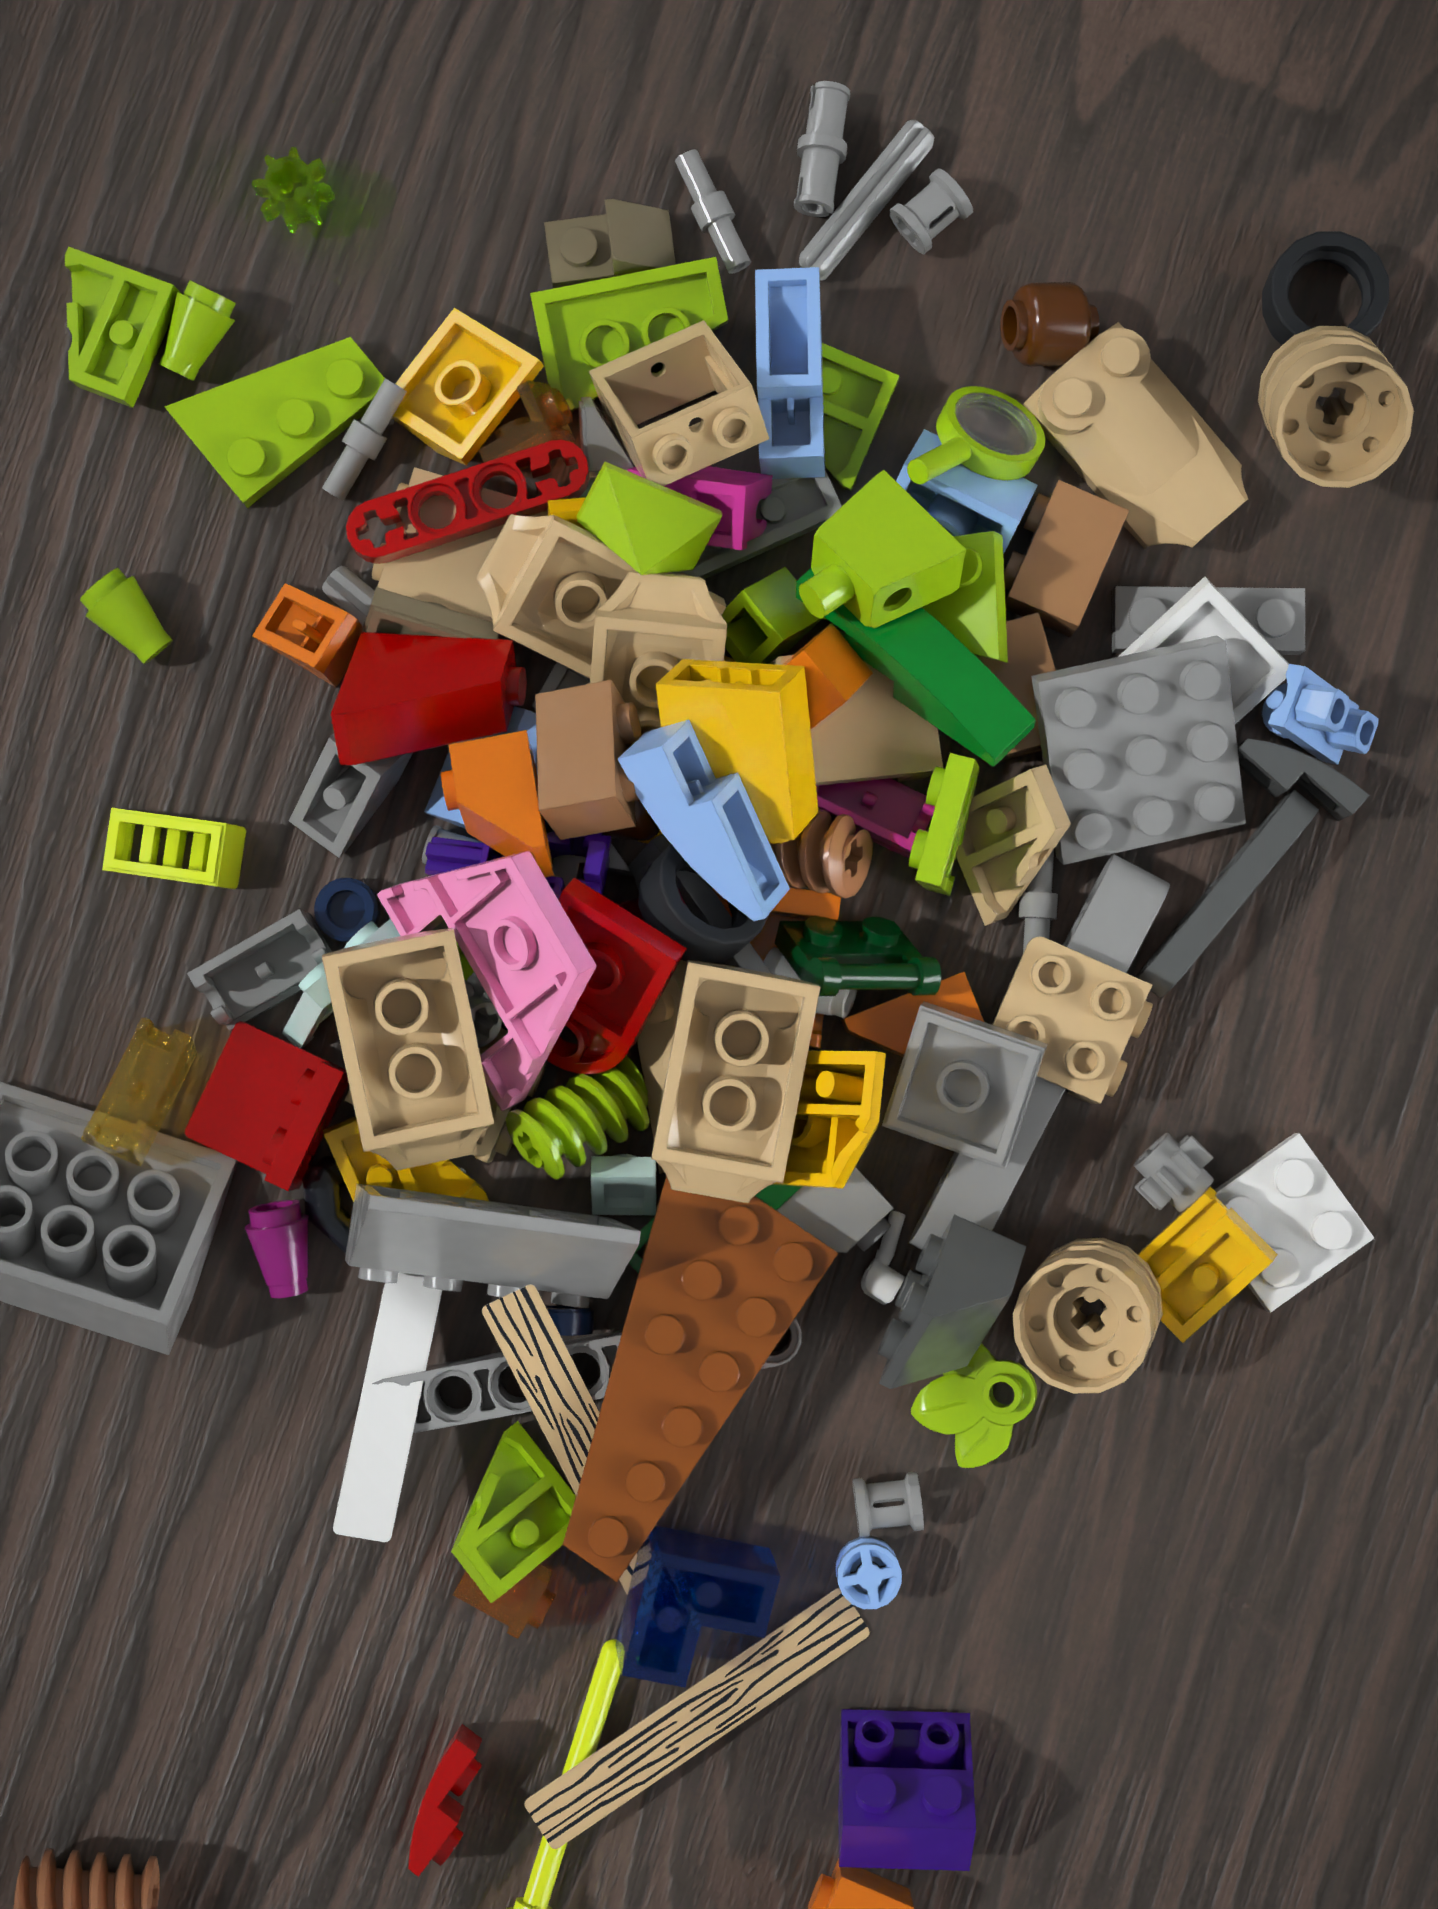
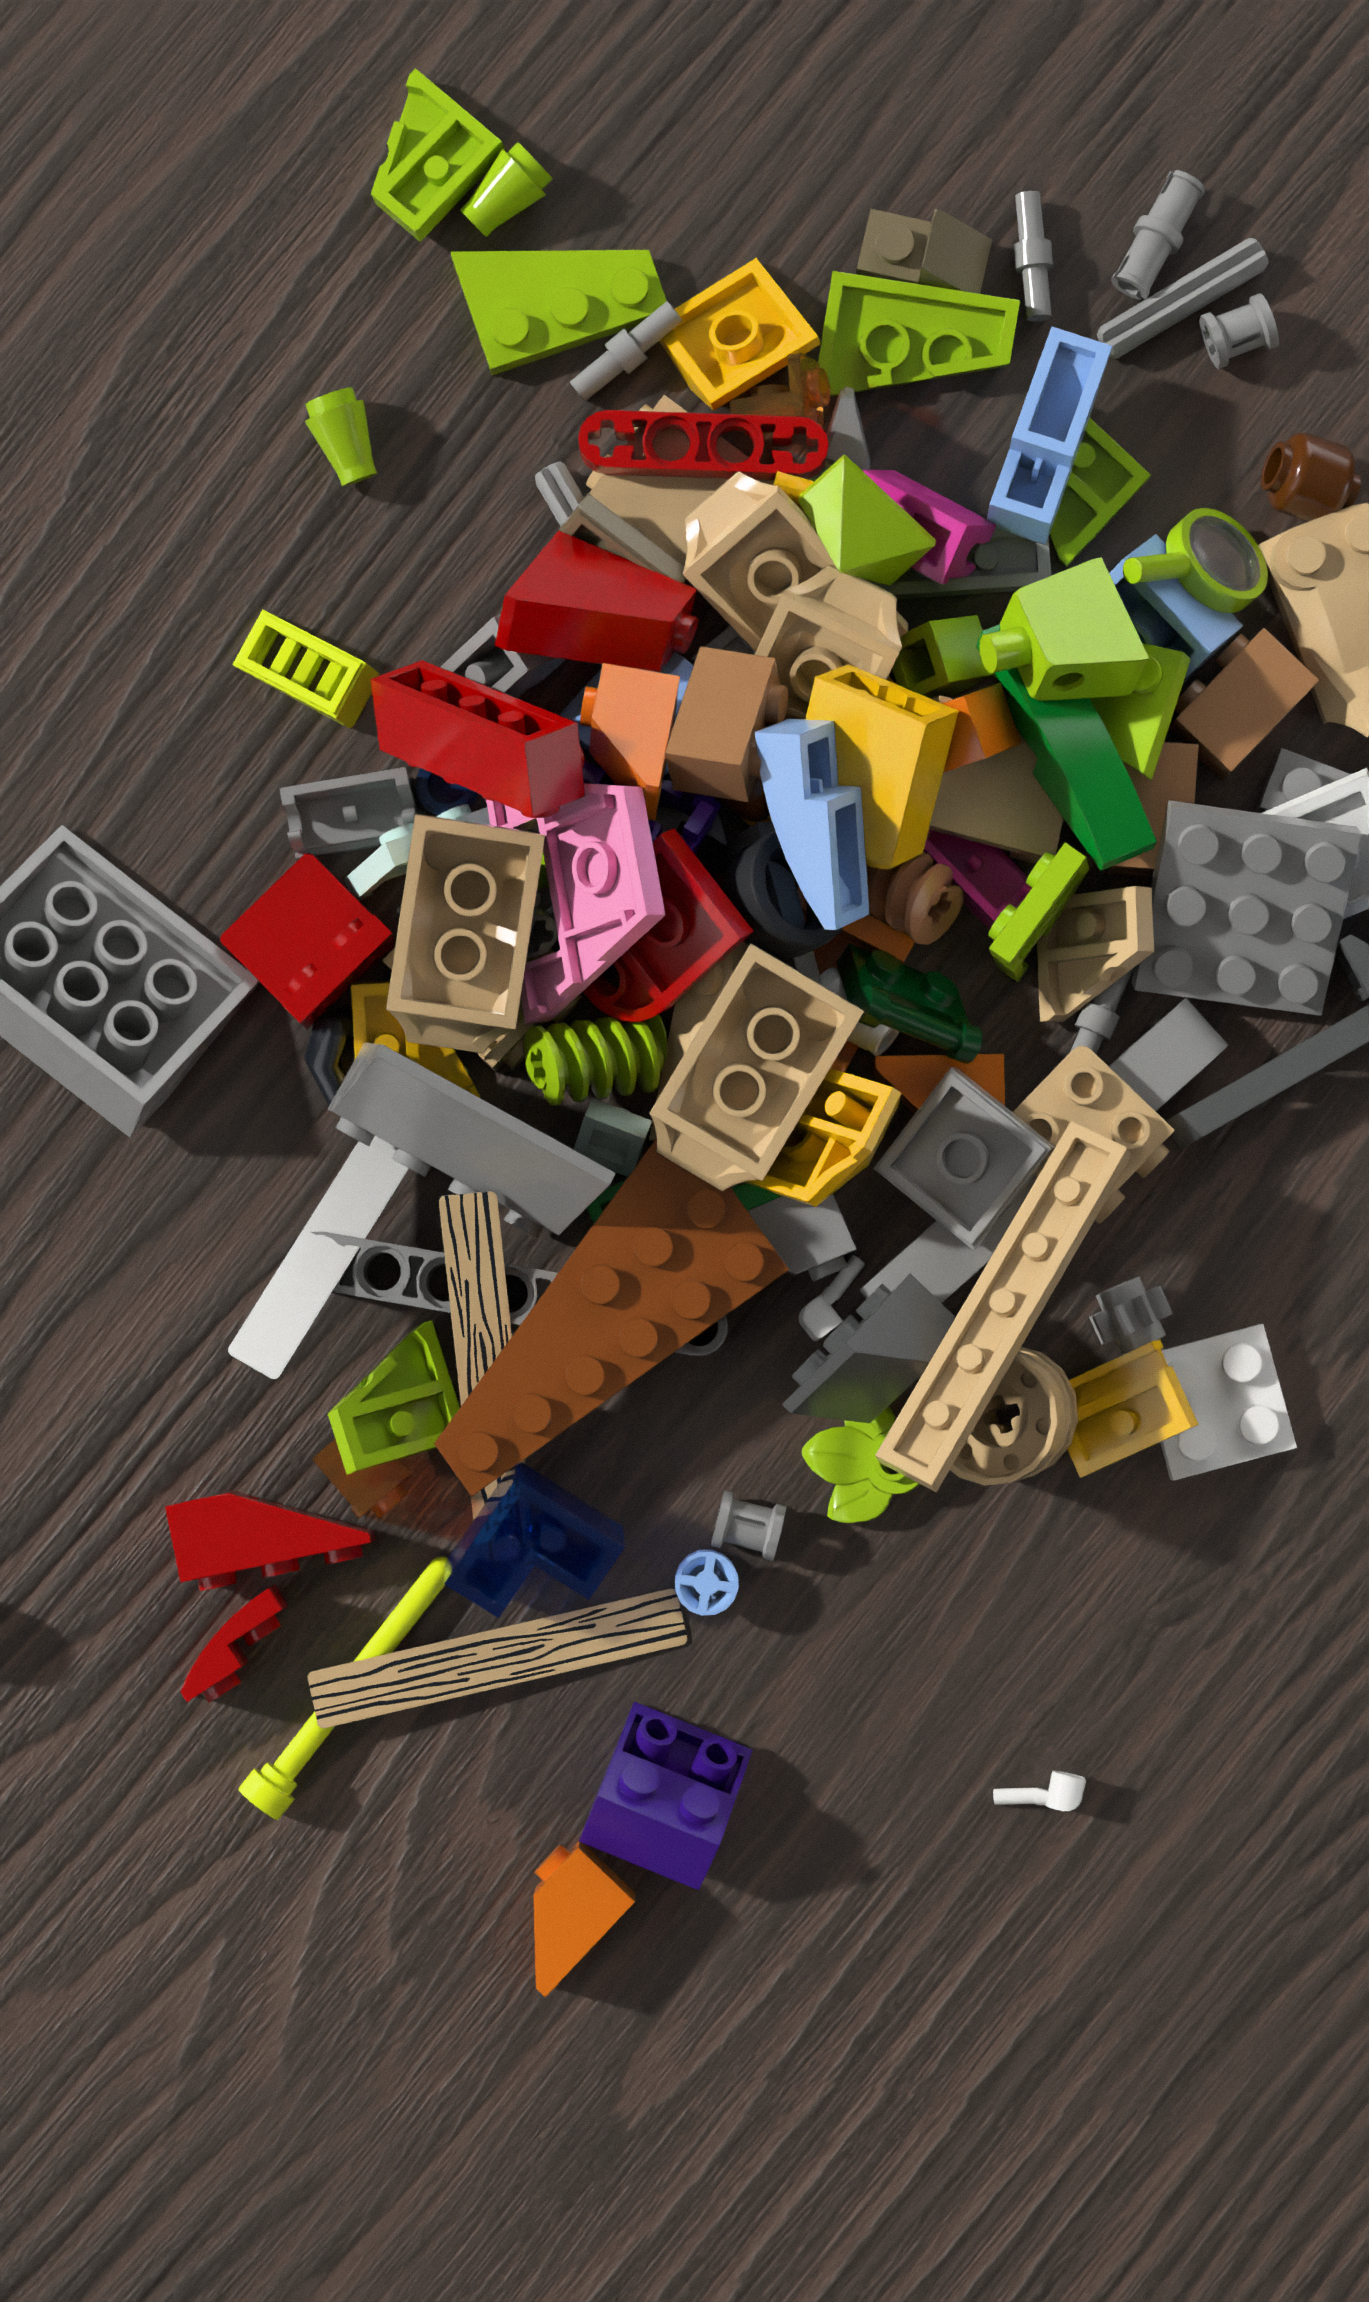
camera: 20 degrees right, 0 degrees up
(140, 1092) = (193, 884): clear yellow hinge -> none
(280, 180) = (637, 78): clear neon green gear -> none
(281, 1246) = (271, 1076): magenta cone -> none
(310, 633) = (509, 514): orange slope -> none
(358, 858) = (479, 738): none -> red brick
(418, 1686) = (244, 1531): none -> red slope
(572, 1320) = (519, 1244): dark blue tile -> none
(691, 368) = (959, 396): tan window -> none
(1056, 1218) = (1003, 1306): none -> tan plate
(1276, 1649) = (1063, 1794): none -> white hand

